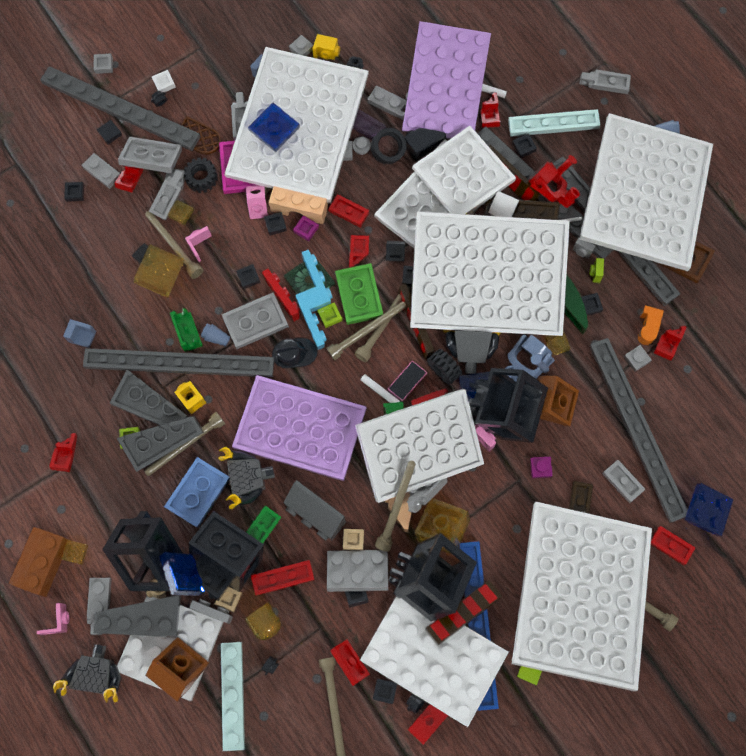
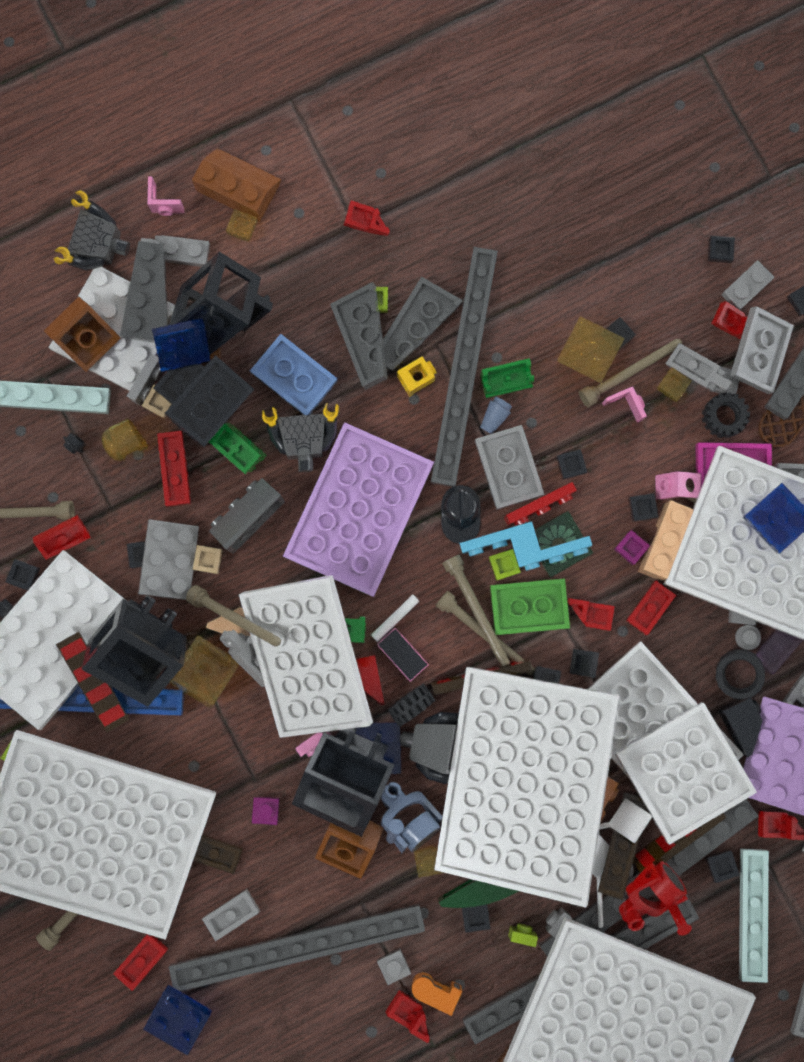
camera: 90 degrees right, 10 degrees up
(79, 333) = (519, 245): sand blue panel -> none
(214, 422) = (380, 405): dark tan piece -> none

